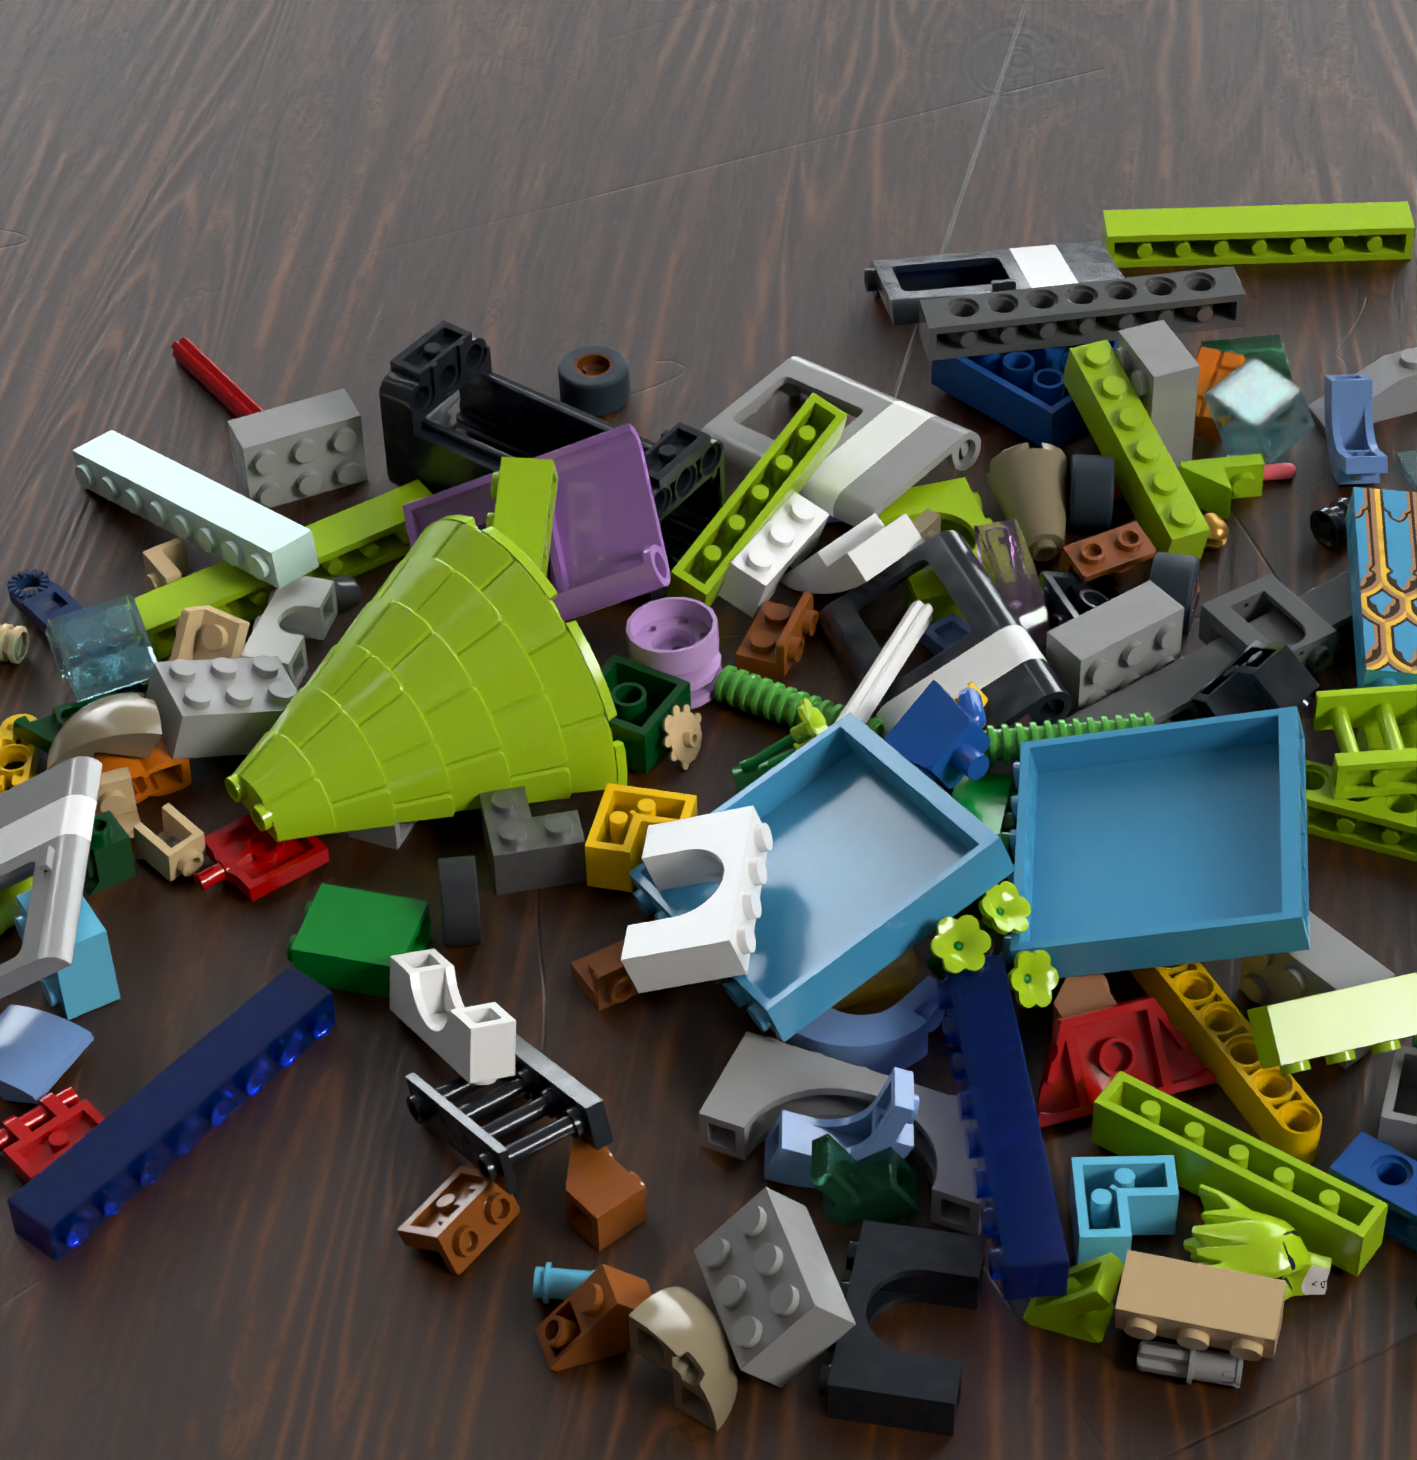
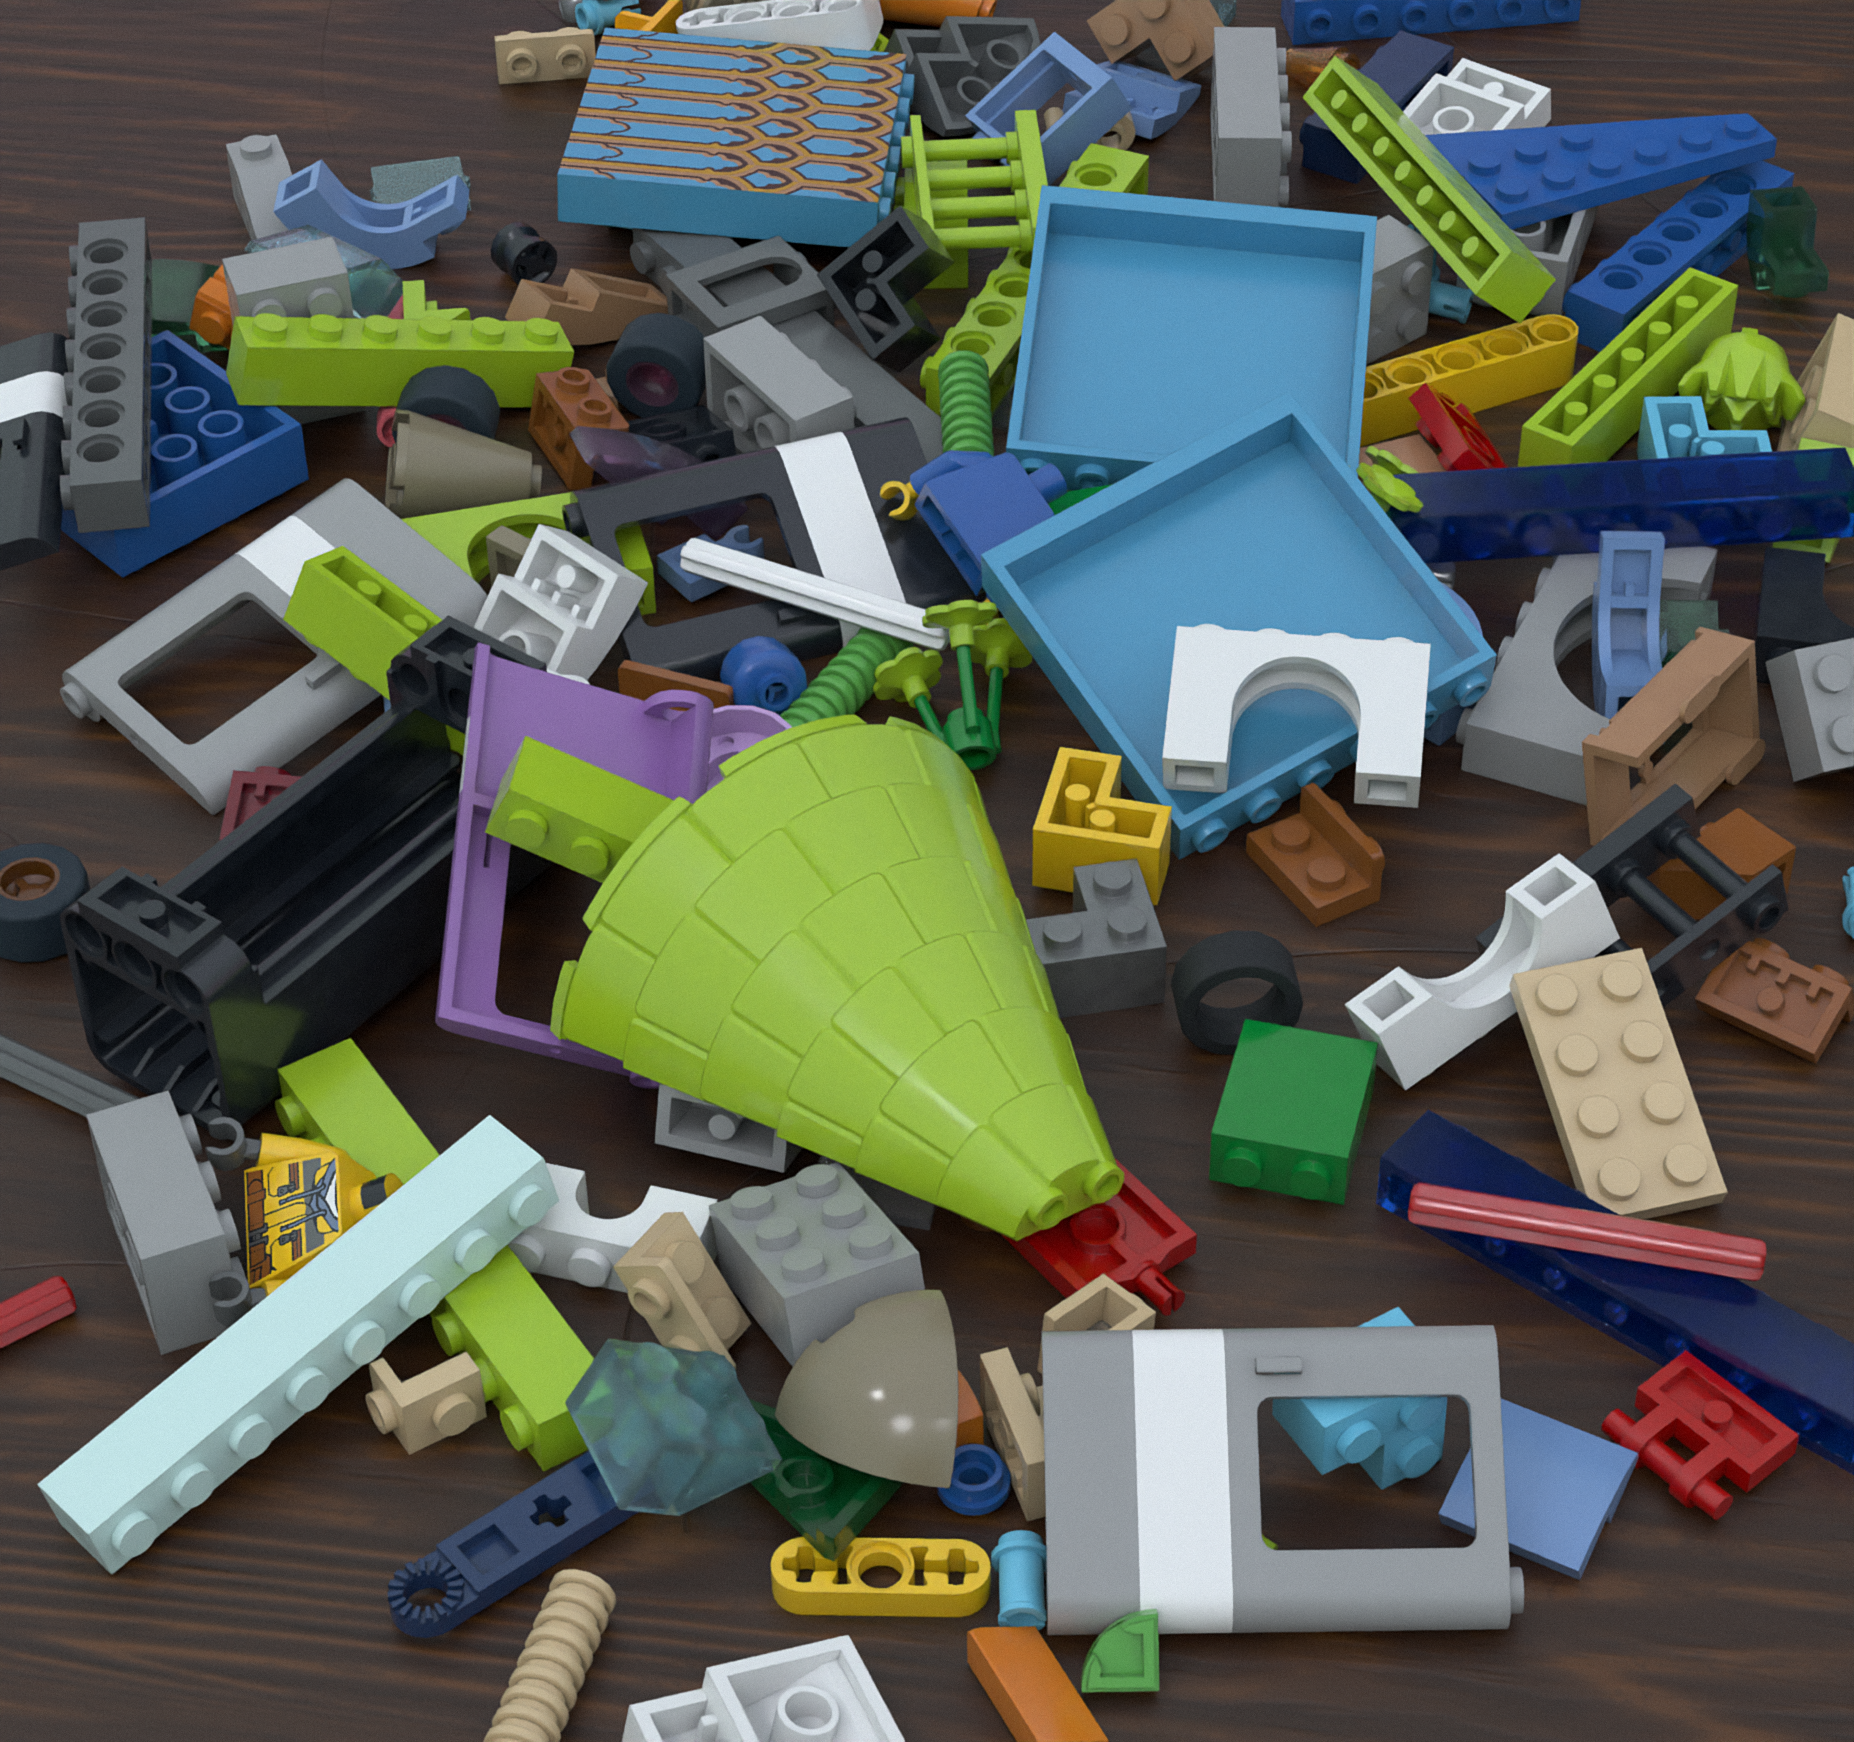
camera: 90 degrees left, 0 degrees up
(193, 1057) = (1587, 1231): none -> red axle
(301, 497) = (294, 1207): none -> torso
(347, 1095) = (1617, 1086): none -> tan plate
(672, 1152) = (1704, 684): none -> medium nougat piece
(807, 666) = (763, 674): none -> blue head
(1255, 551) = (588, 305): none -> medium nougat slope
(1375, 1073) = (1450, 301): none -> medium azure pin

